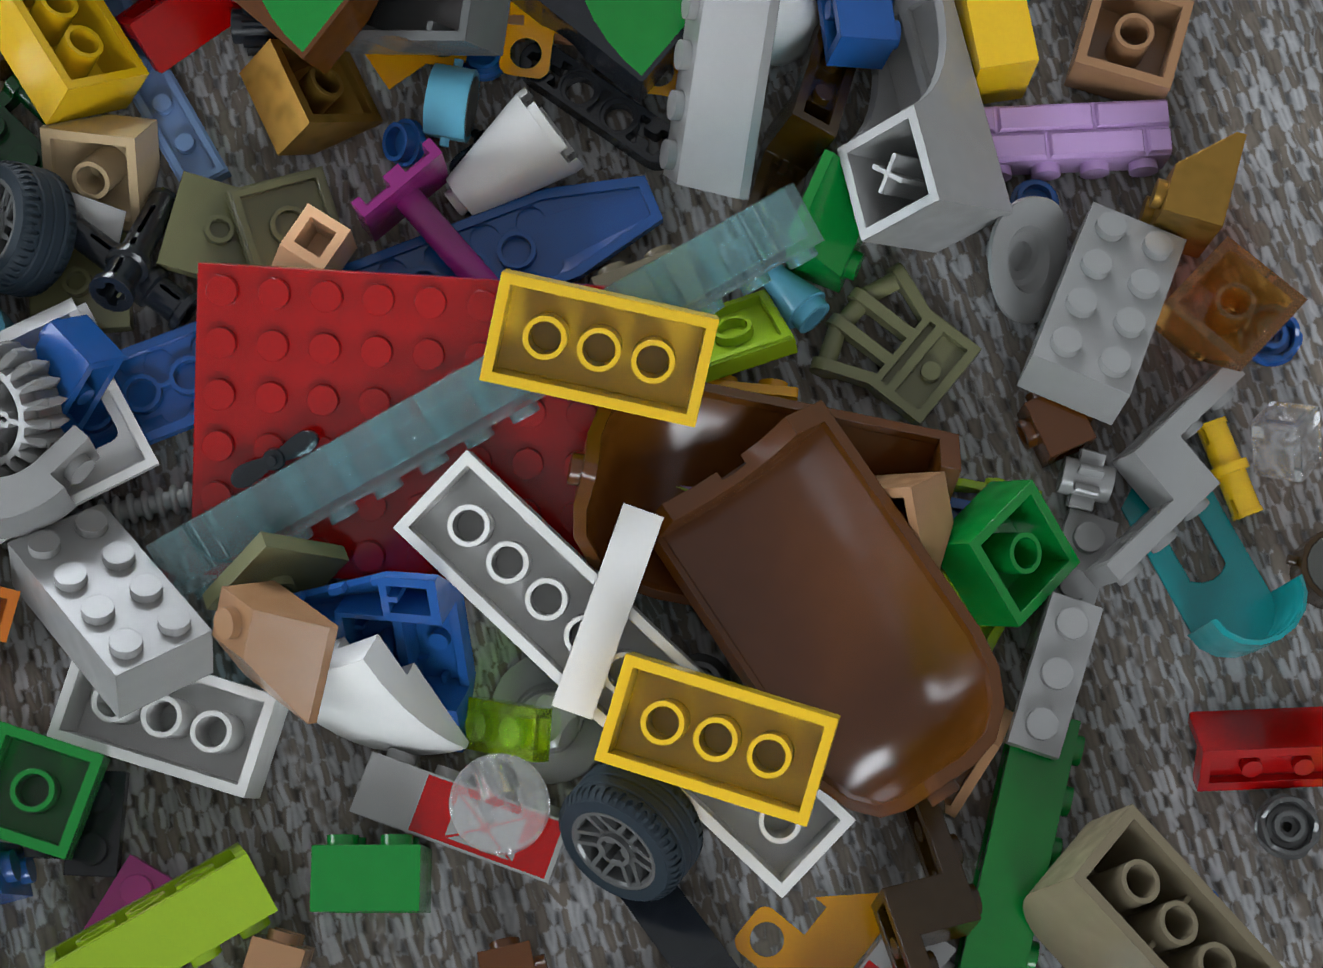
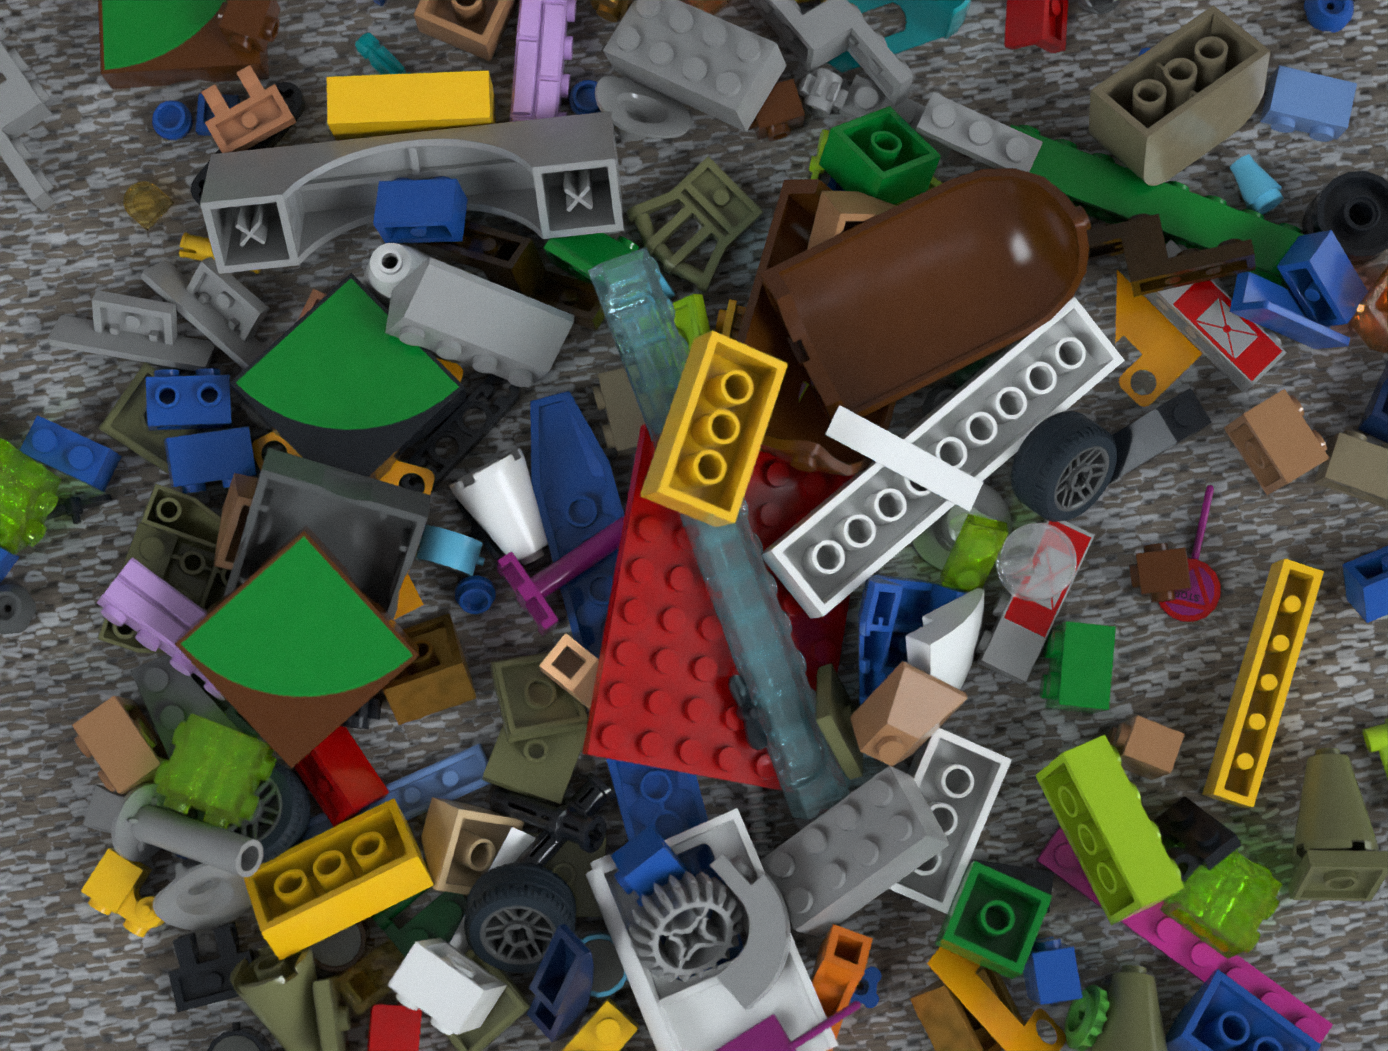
camera: 85 degrees left, 5 degrees up
(717, 738) = (1014, 383): yellow brick -> none

